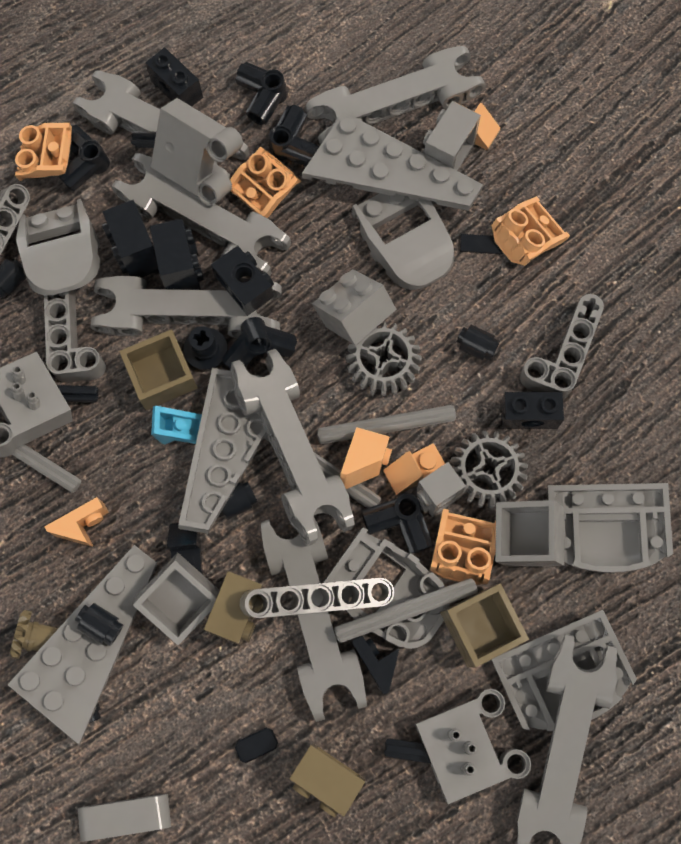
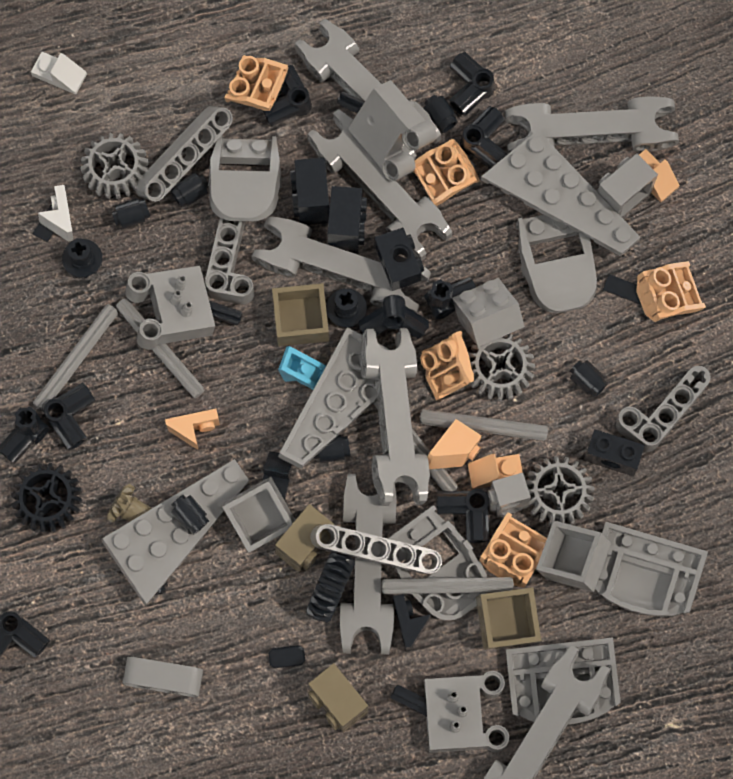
camera: 15 degrees right, 0 degrees up
(174, 78) = (393, 49): black brick -> none
(245, 126) = (440, 113): none -> black brick
(280, 656) = (330, 587): none -> black gear
(299, 304) = (440, 296): none -> black piece
(329, 375) = (447, 366): none -> light nougat slope

